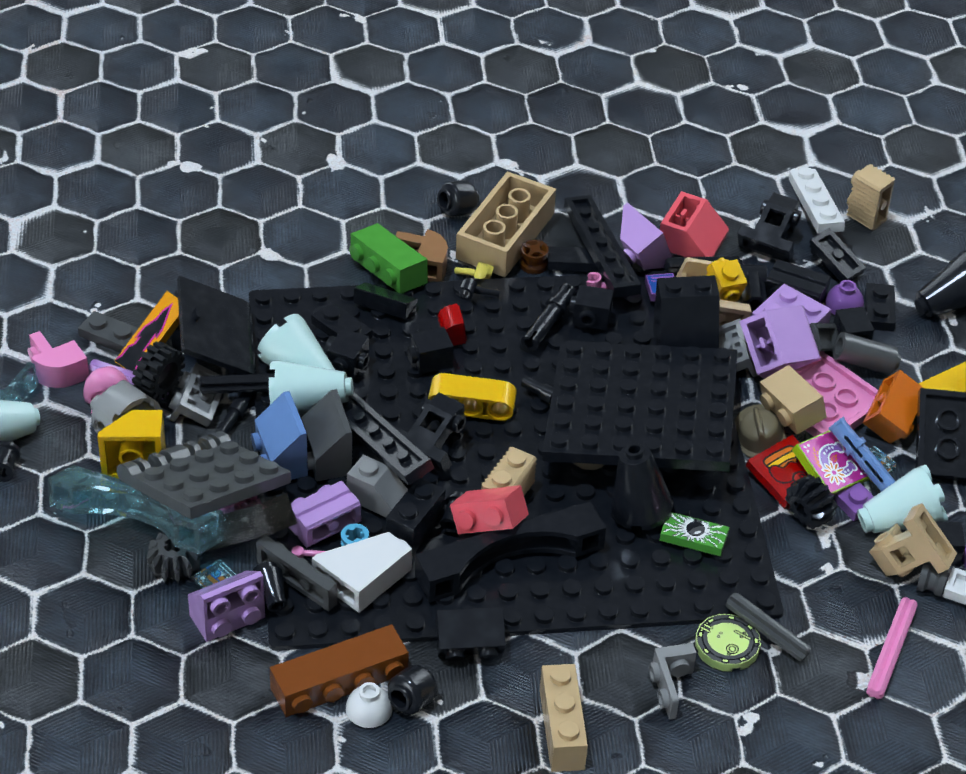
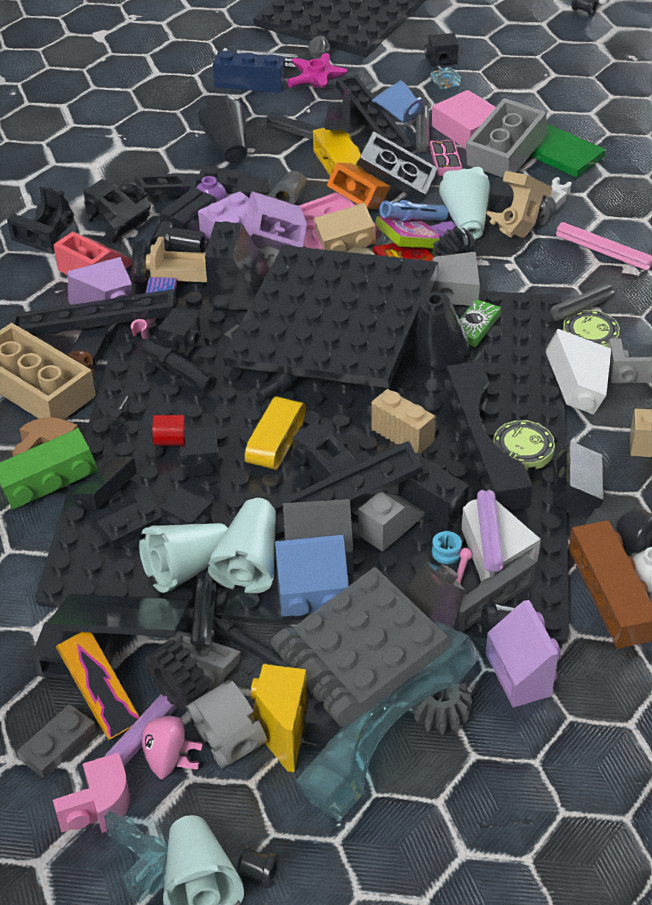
camera: 75 degrees left, 0 degrees up
(213, 573) = (478, 677): clear light blue tile -> none
(325, 513) = (407, 553): lavender brick -> none
(354, 548) = (489, 531): none -> lavender axle
(482, 271) = (88, 406): light yellow hand -> none
(489, 509) = (448, 430): coral brick -> none
(511, 586) = (526, 443): none -> tile
(637, 625) = (579, 370): none -> white slope
(729, 278) = (182, 243): yellow brick -> none
(739, 191) = (51, 220): none -> black tile
(754, 504) = (458, 278): none -> light grey torso
(816, 200) = (76, 183): white plate -> none
(870, 196) = (103, 147): tan brick -> none

